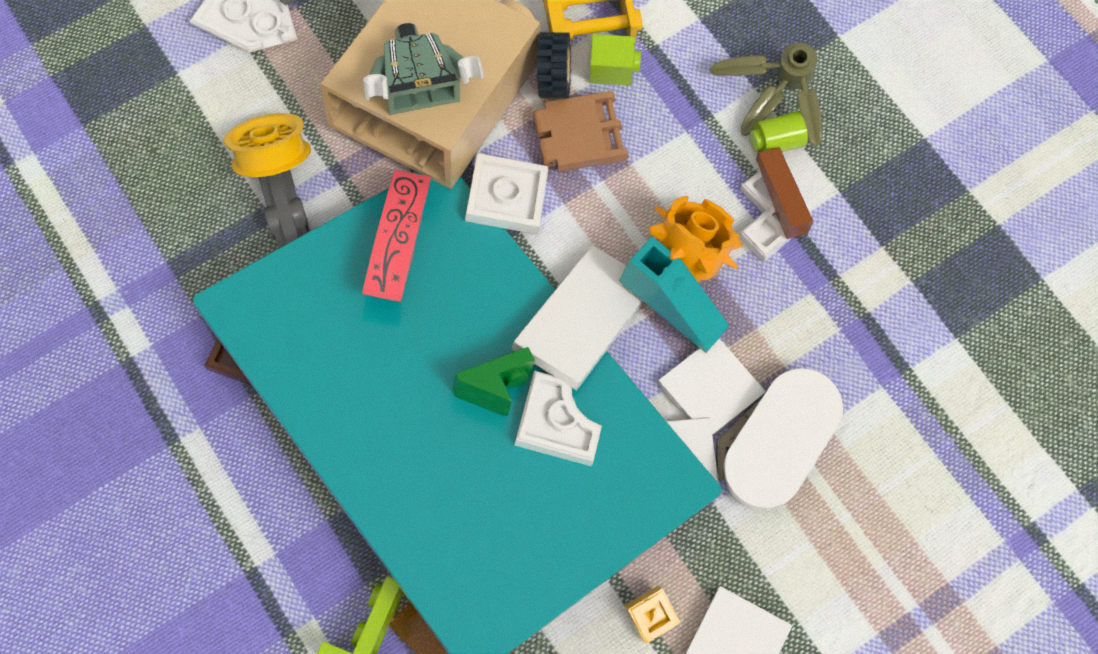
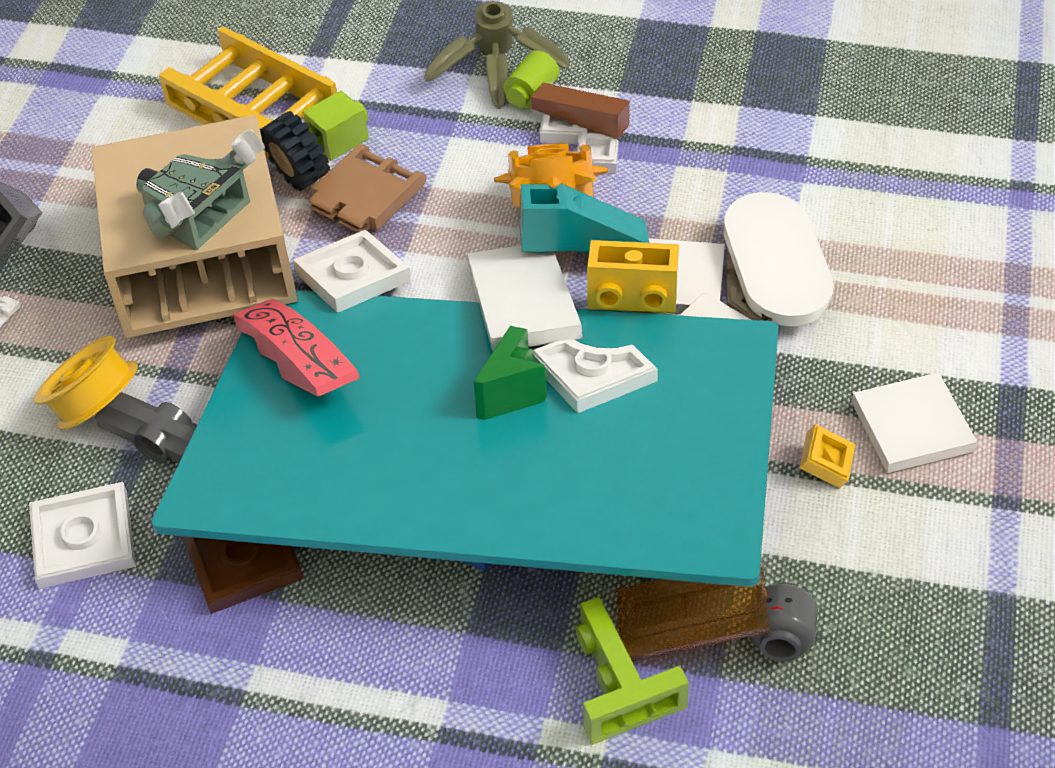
camera: 40 degrees left, 20 degrees down
(186, 248) = (81, 535): none -> white tile
(660, 371) = (632, 276): none -> yellow brick

